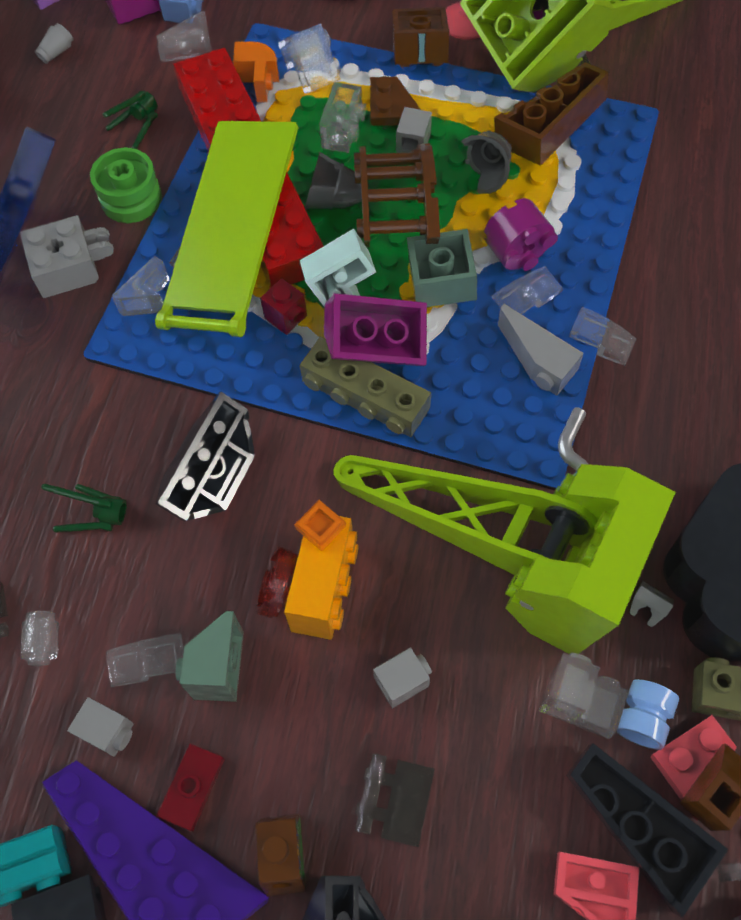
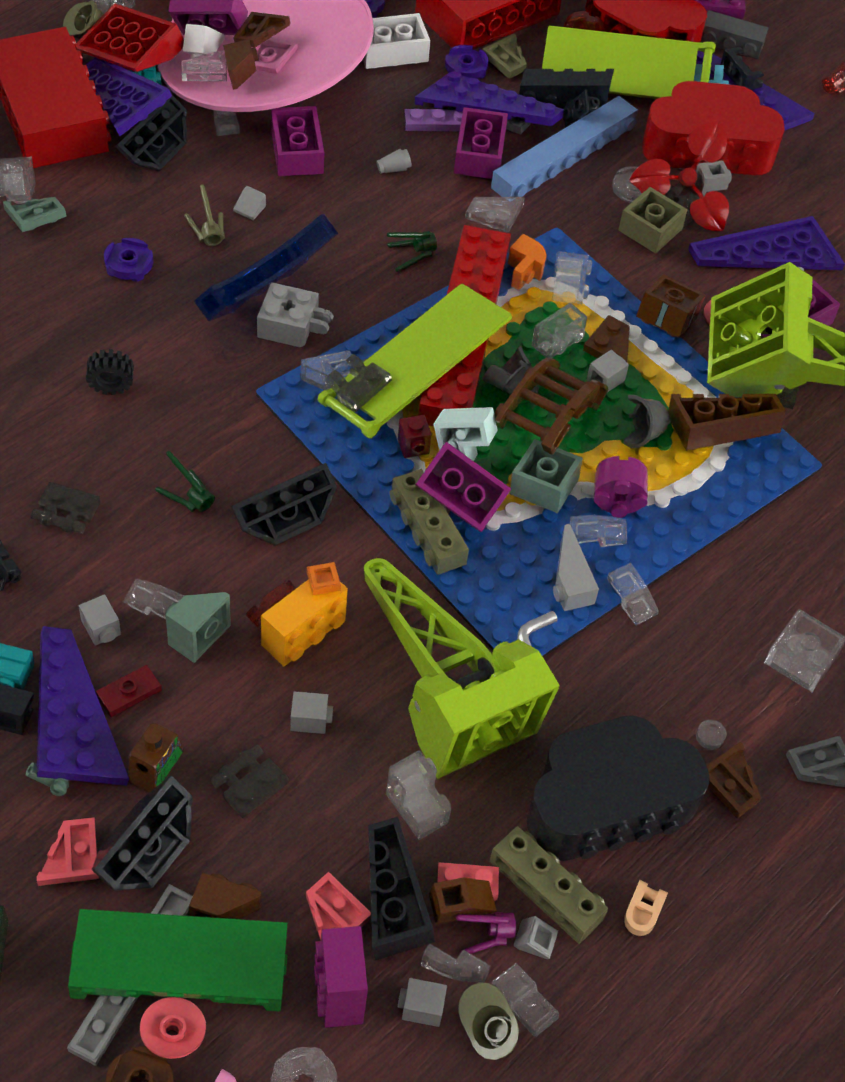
camera: 25 degrees right, 10 degrees down
(39, 638) = (100, 545): clear brick -> none
(126, 185) = (369, 292): bright green wheel -> none
(197, 286) = (363, 387): none -> clear smoke plate
(647, 716) = (450, 836): light blue wheel -> none
(653, 598) = (520, 777): light grey tile -> none

